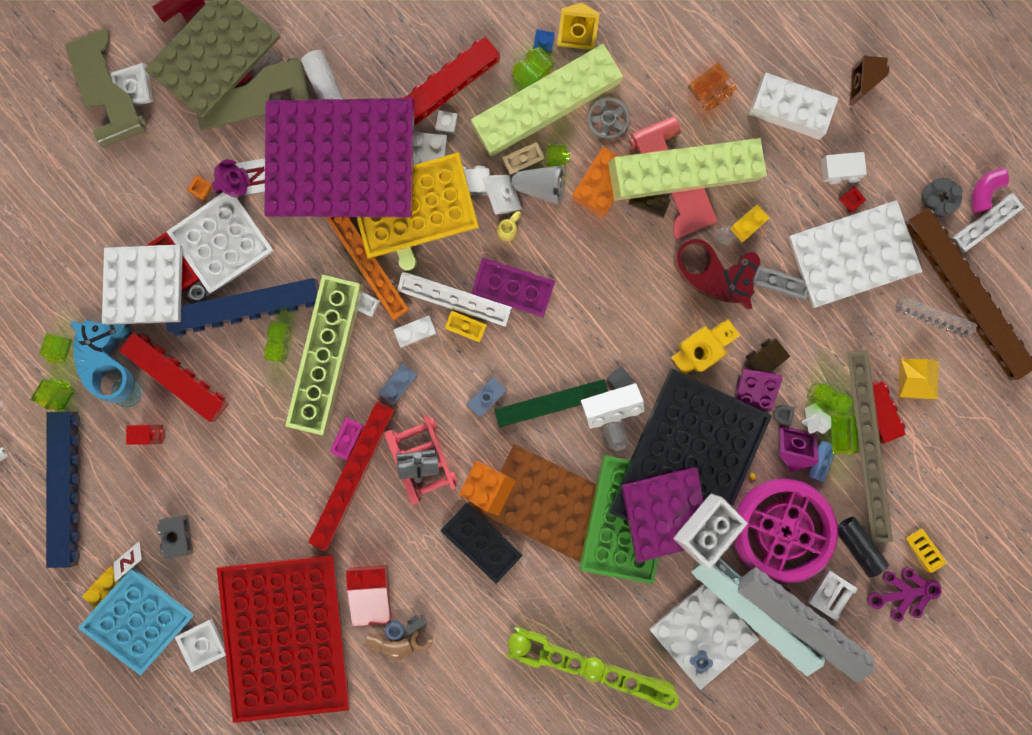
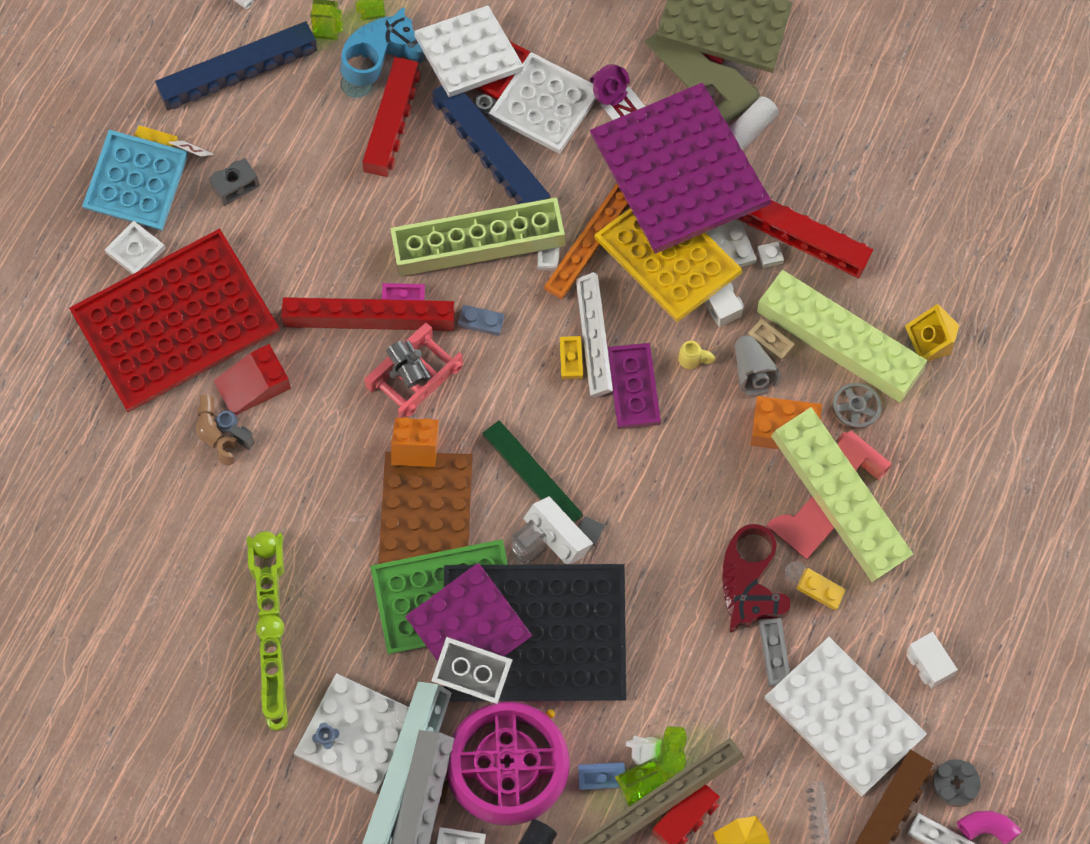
camera: 65 degrees right, 20 degrees down
(144, 434) = (323, 111): red brick -> none
(200, 187) = (588, 64): orange tile -> none
(278, 336) = (470, 192): clear neon green brick -> none
(407, 259) = (612, 275): yellowish green leg -> none
(414, 331) = (542, 313): white plate -> none
(481, 543) = (354, 465): black plate -> none
(486, 397) = (508, 408): sand blue plate -> none
(502, 194) = (722, 331): white plate -> none
(533, 68) = (868, 308): clear neon green brick -> none
(544, 40) = (902, 310): blue plate -> none
(557, 155) = (790, 368): clear neon green brick -> none
(654, 204) = (790, 483): dark brown plate -> none
(708, 82) = (946, 485): clear orange plate -> none
(710, 342) = (663, 592): yellow piece -> none
(758, 388) = (647, 671): magenta plate -> none
(767, 357) = (684, 668): dark brown brick -> none
(783, 414) = (633, 715): dark grey tile -> none
(793, 106) = (968, 579): white brick -> none
(797, 448) = (603, 739): magenta slope -> none
(852, 199) = (903, 688): red tile -> none
(866, 76) = (1037, 639): reddish brown slope -> none

